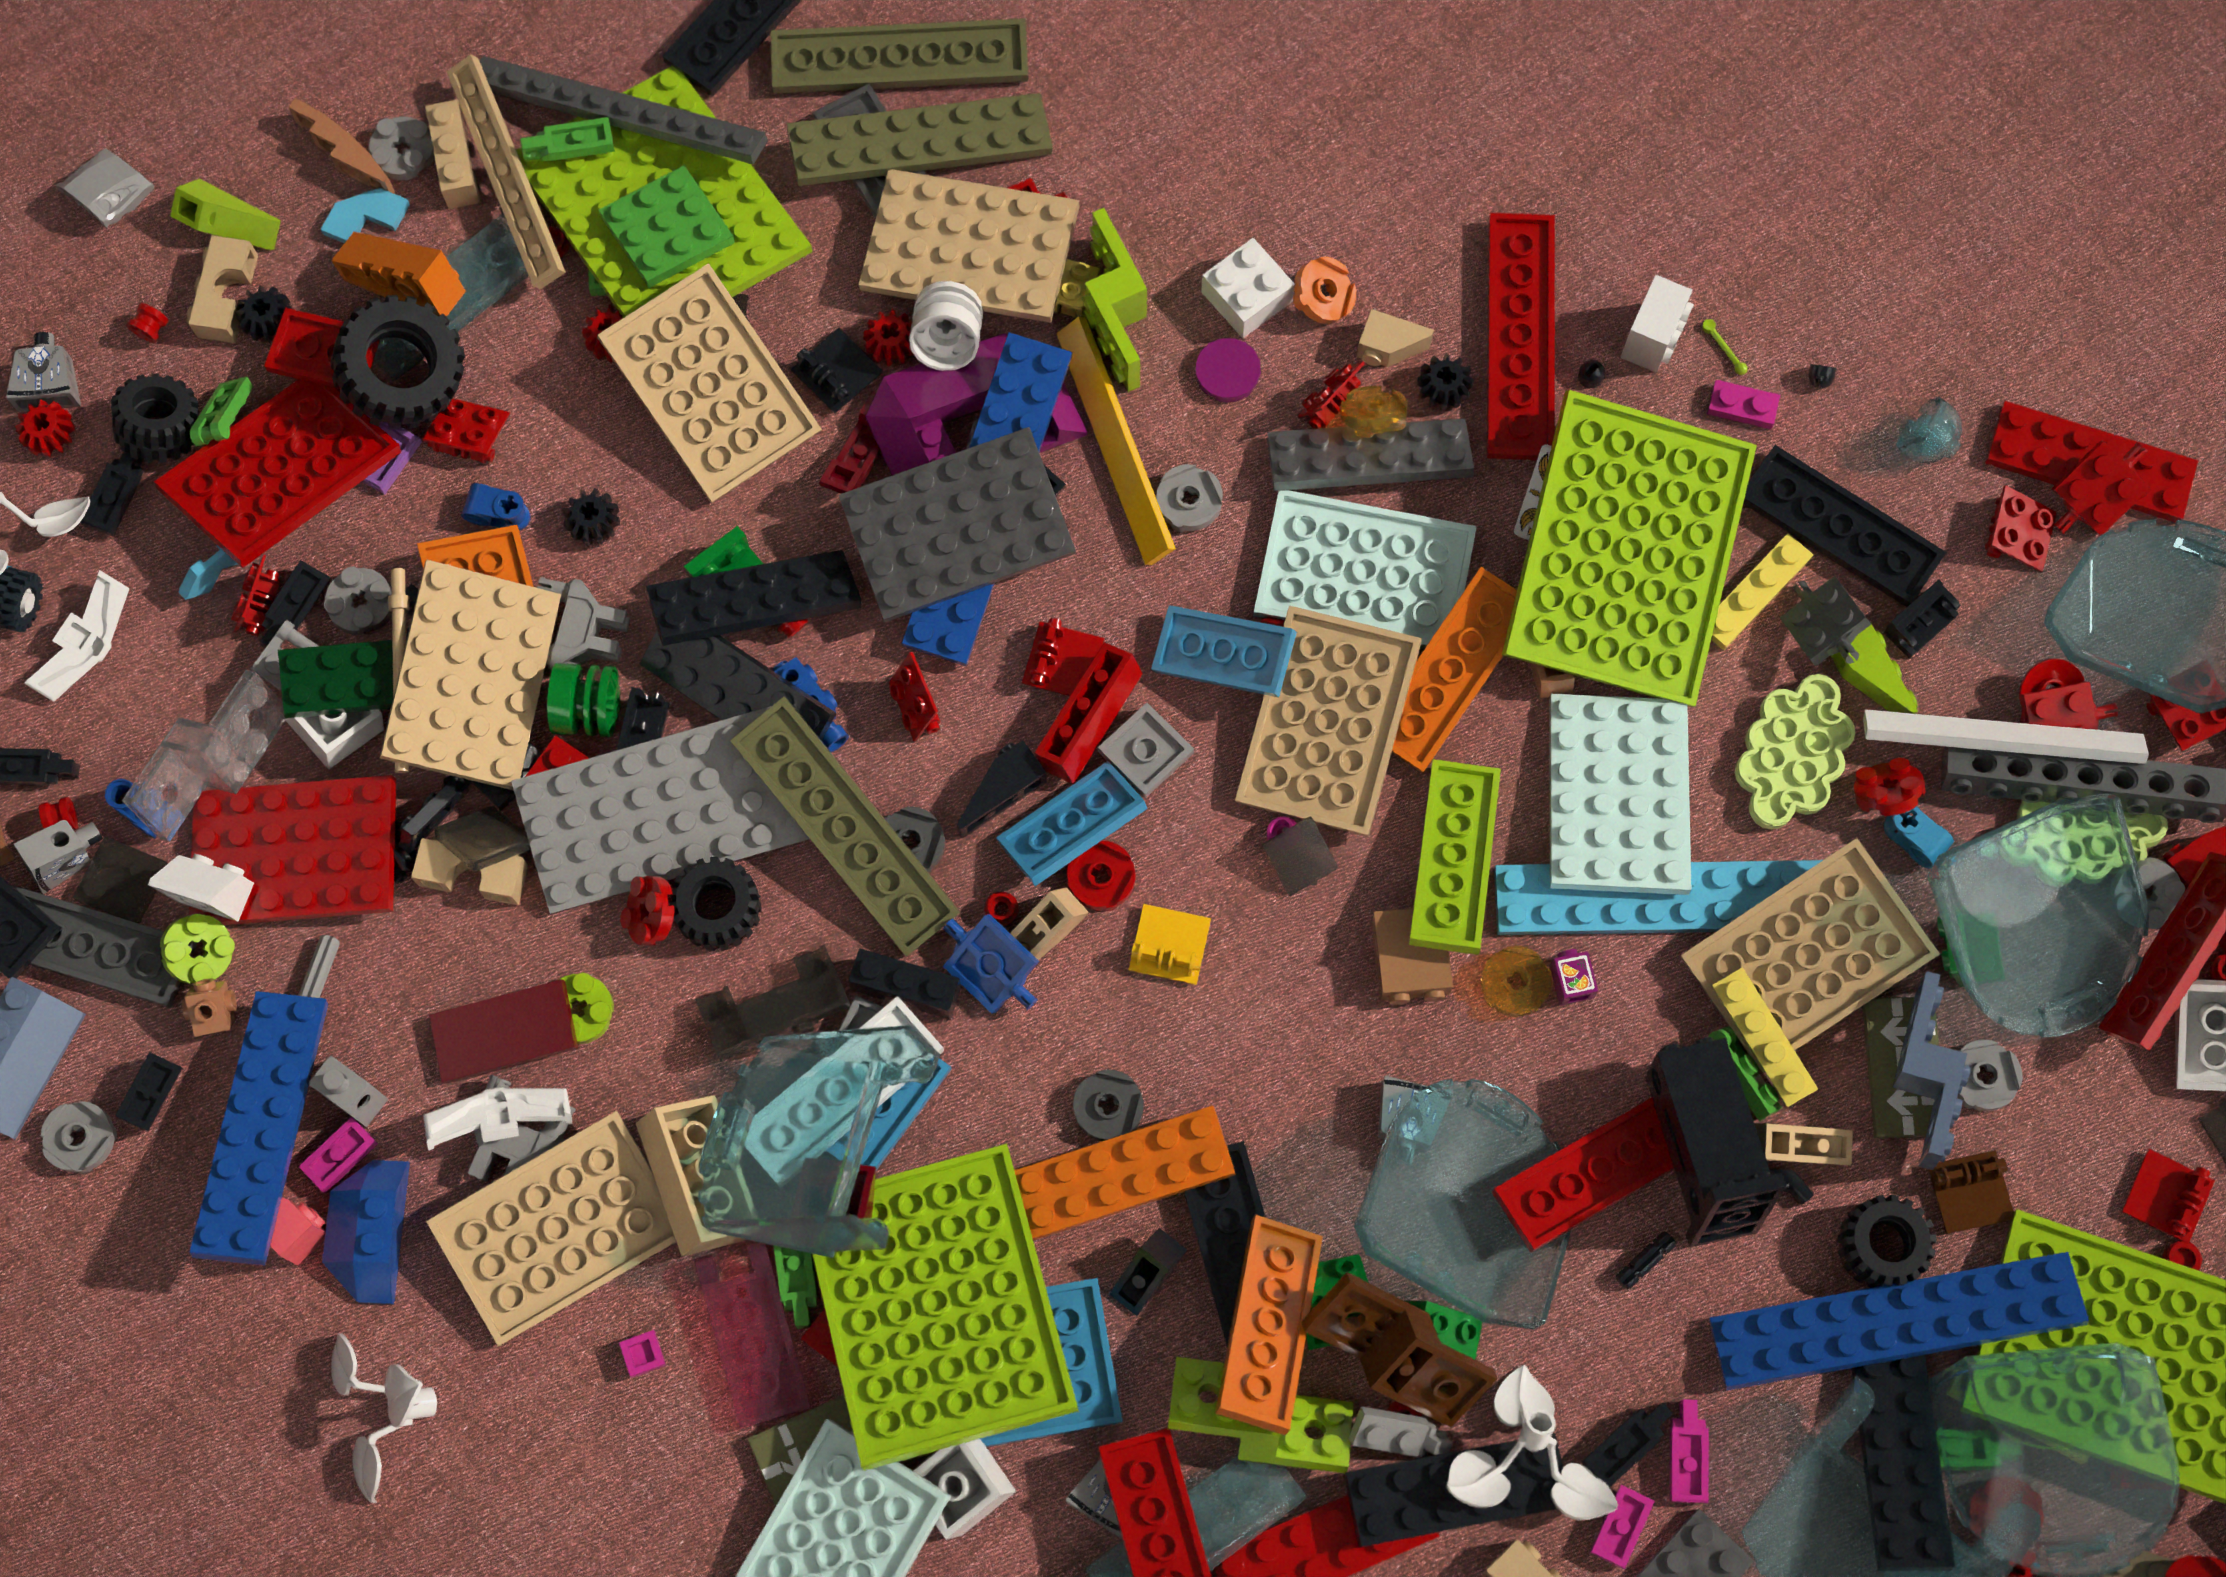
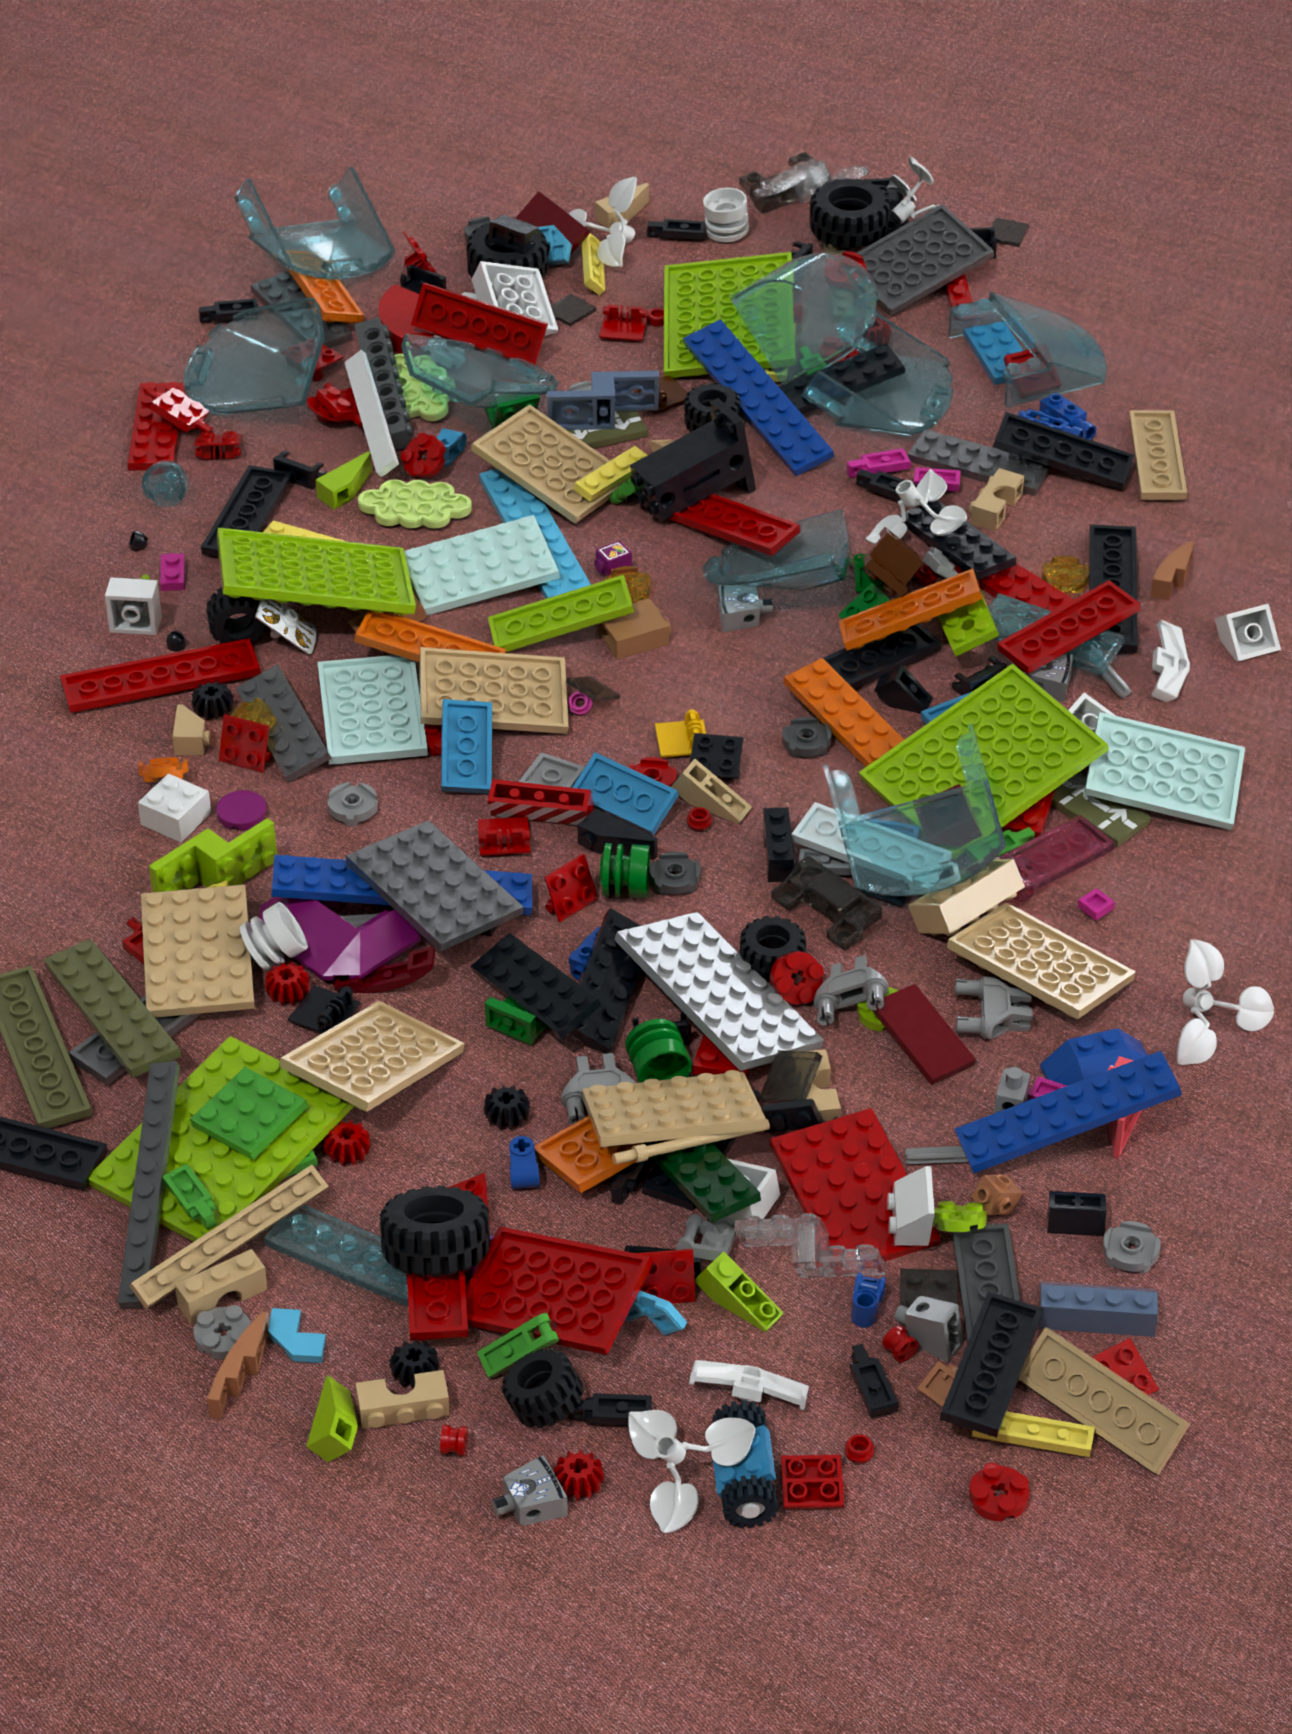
camera: 110 degrees left, 30 degrees down
(106, 187) = (334, 1521): light grey slope -> none
(209, 670) = (738, 1293): none -> lime slope
(345, 588) = (635, 1214): light grey plate -> none
(400, 270) = (349, 1267): orange wedge -> none
(496, 1113) = (986, 1000): white plate -> none
(607, 971) = (848, 989): none -> light grey connector
(845, 826) = (685, 886): olive plate -> none
(914, 769) = (625, 870): none -> green wheel
(990, 963) = (742, 805): blue plate -> none
(1096, 963) = (718, 754): none -> black hinge
(1116, 442) = (332, 841): yellow tile -> none
(1143, 1393) = (974, 681): none -> black hinge
(1646, 1260) = (774, 502): black axle -> none
(1825, 621) = (323, 496): dark grey plate -> none

